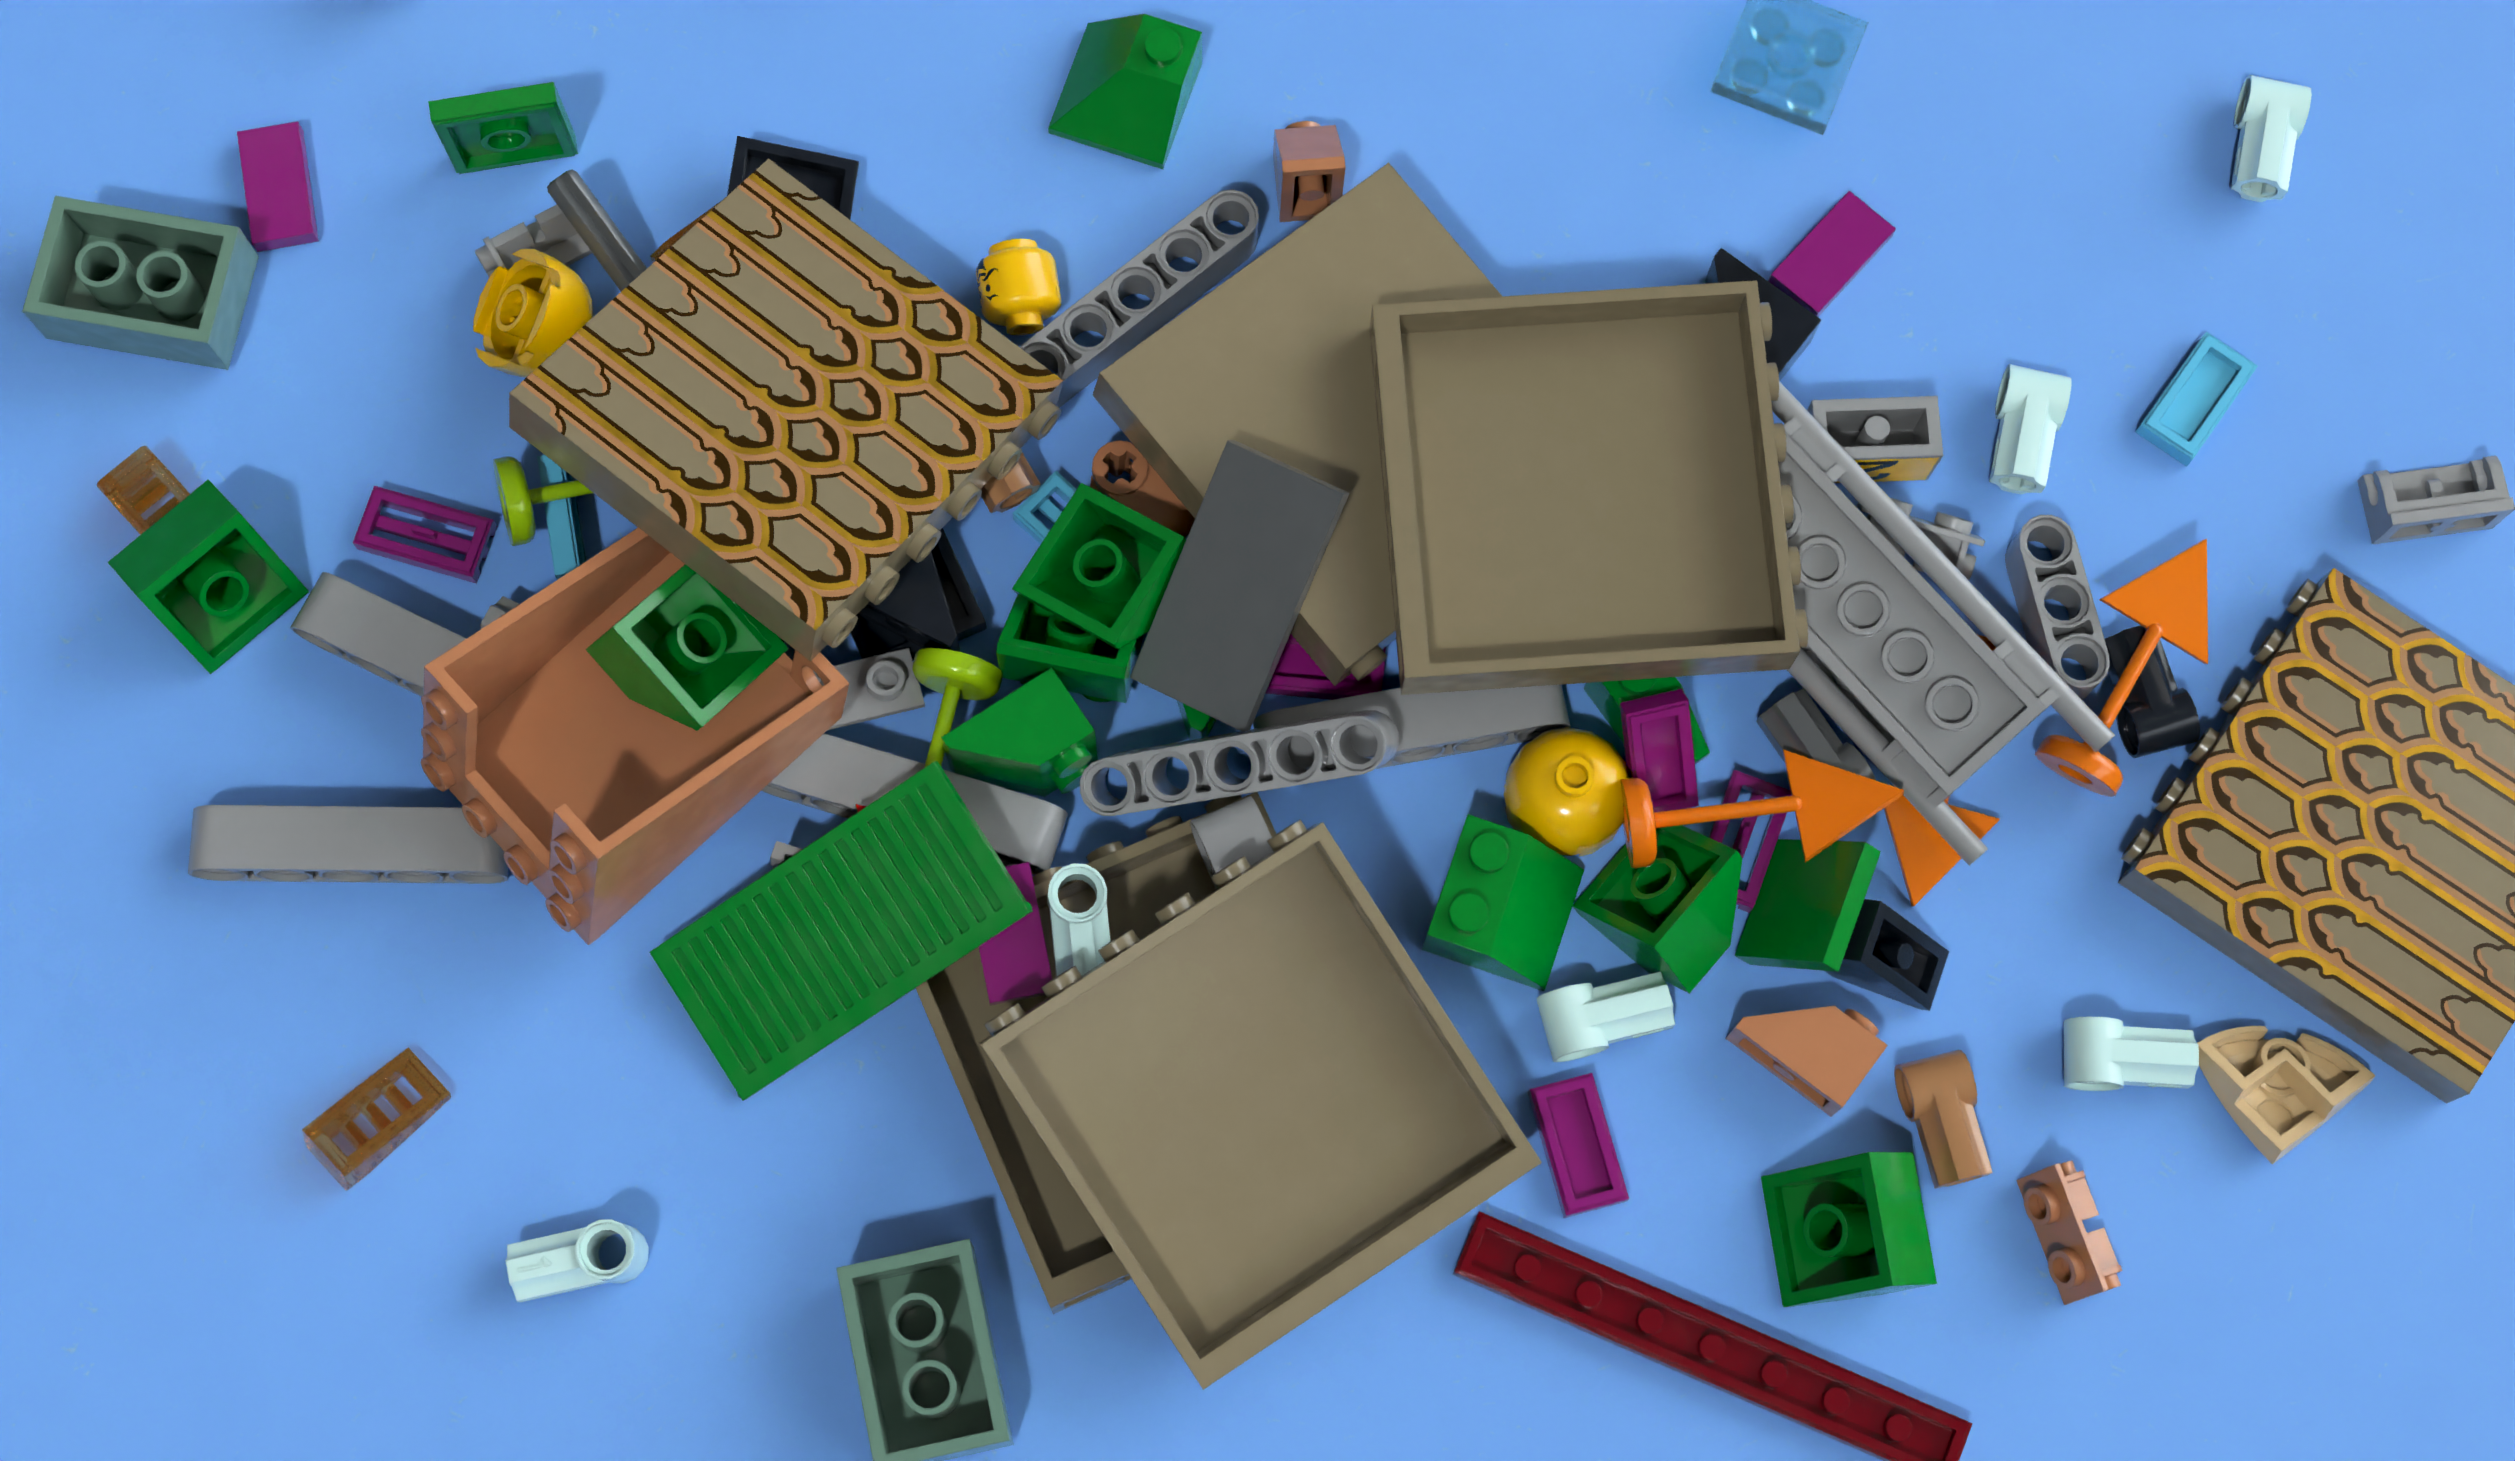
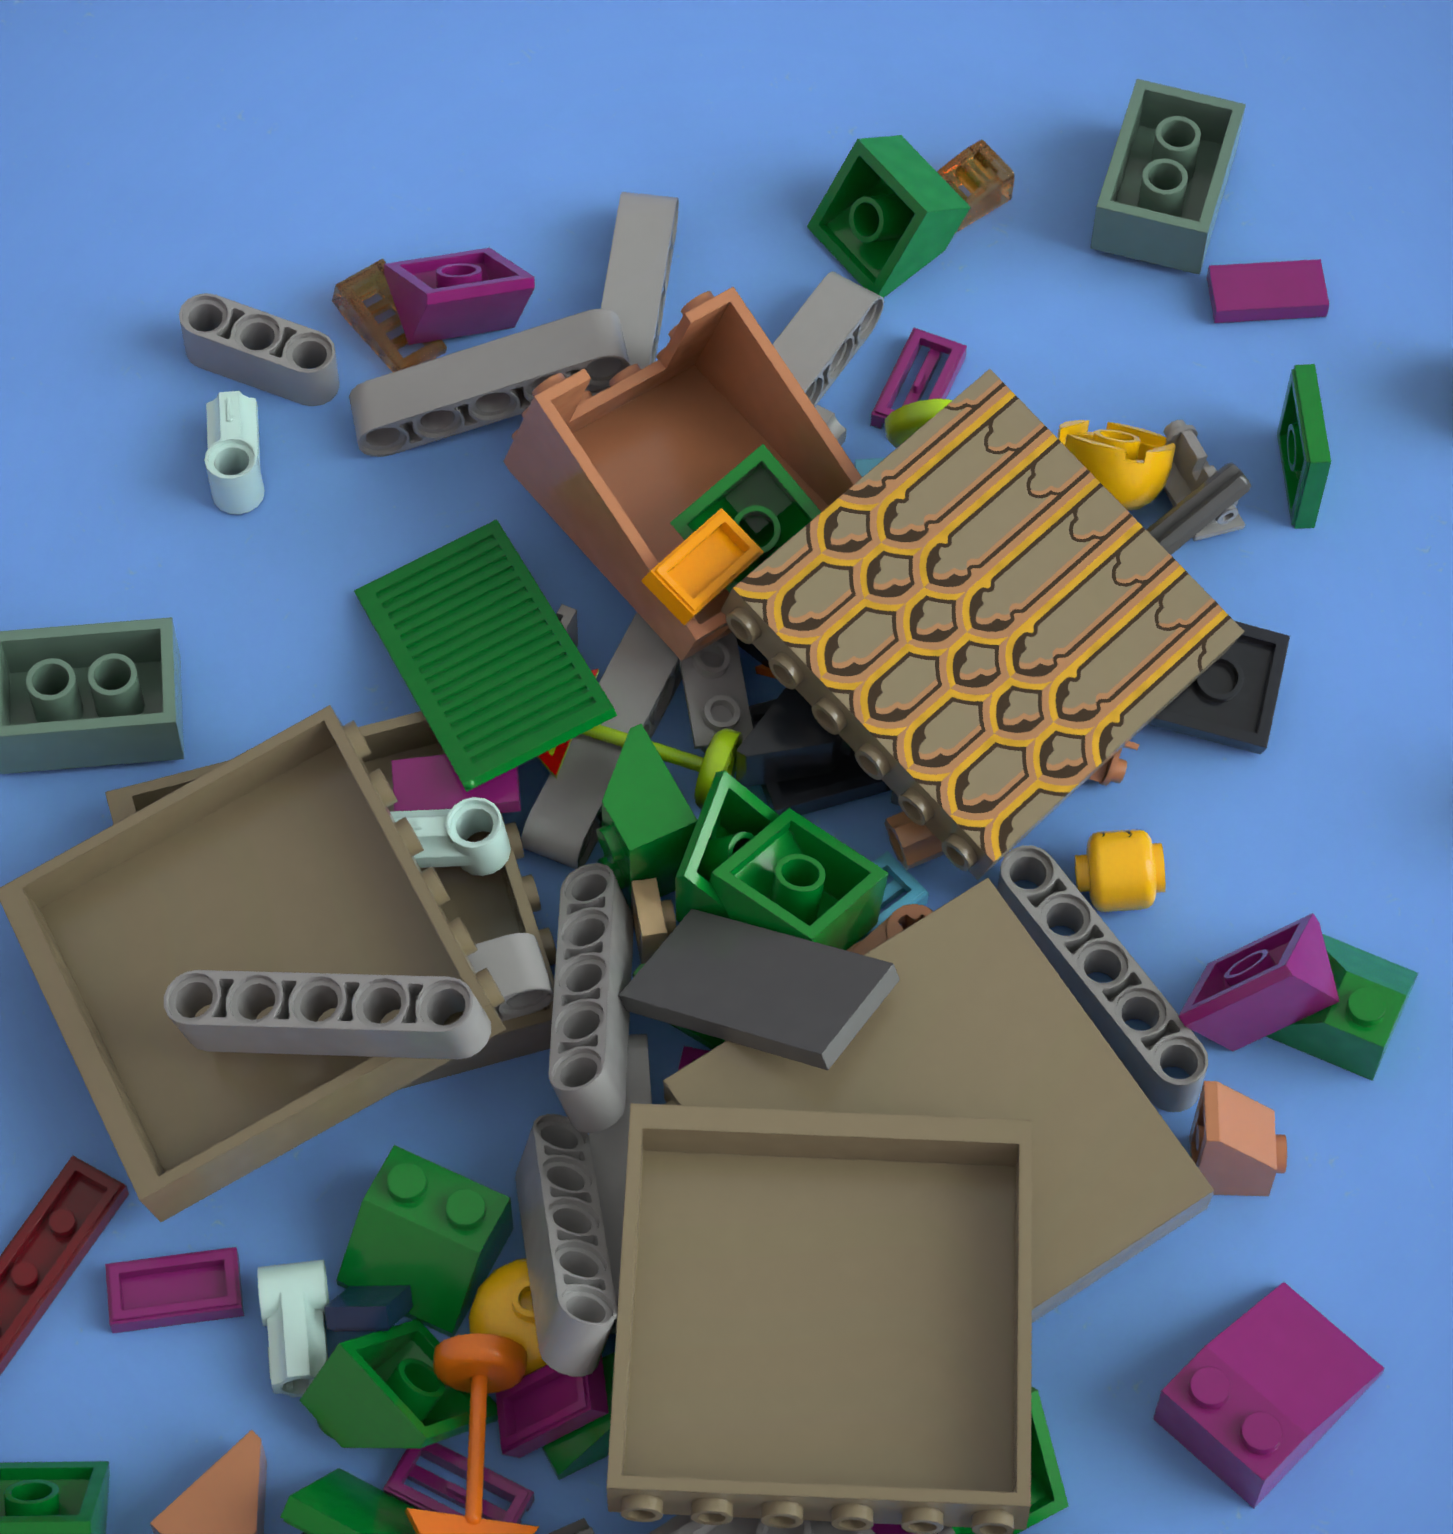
camera: 100 degrees right, 15 degrees down
(341, 1037) = (458, 294): none -> magenta slope
(439, 1288) = (259, 349): none -> light grey beam
(478, 978) = (483, 382): none -> light grey beam
(765, 680) = (702, 566): none -> light orange tile
(1125, 729) = (652, 917): none -> tan plate
(1134, 147) = (1263, 986): none -> magenta slope
(1370, 1014) = (350, 1031): none -> light grey beam
(1521, 747) = (565, 1246): none -> light grey beam
(1538, 136) = (1265, 1392): none -> magenta slope
(1582, 944) = (368, 1308): none -> dark blue tile

